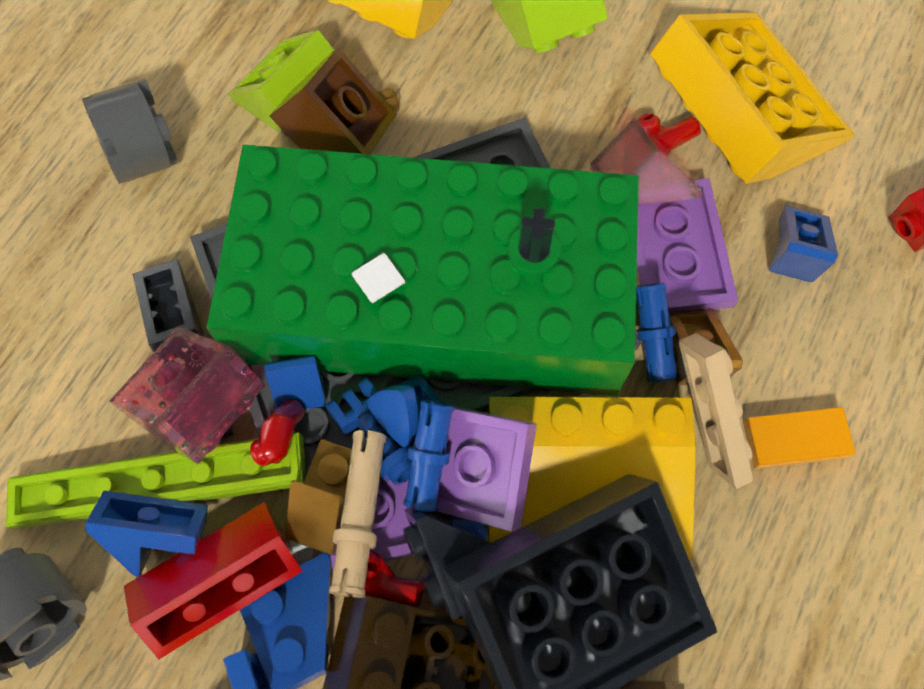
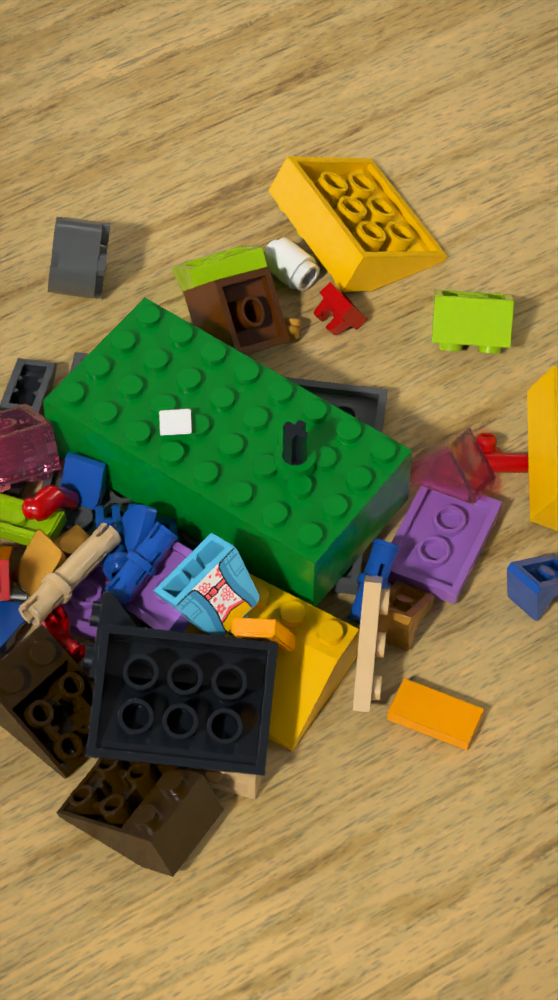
camera: 30 degrees right, 15 degrees down
(349, 33) = (291, 264): none -> white brick
(420, 54) = (341, 307): none -> red tile
(542, 459) = (210, 587): none -> torso
(627, 476) = (264, 630): none -> light orange tile

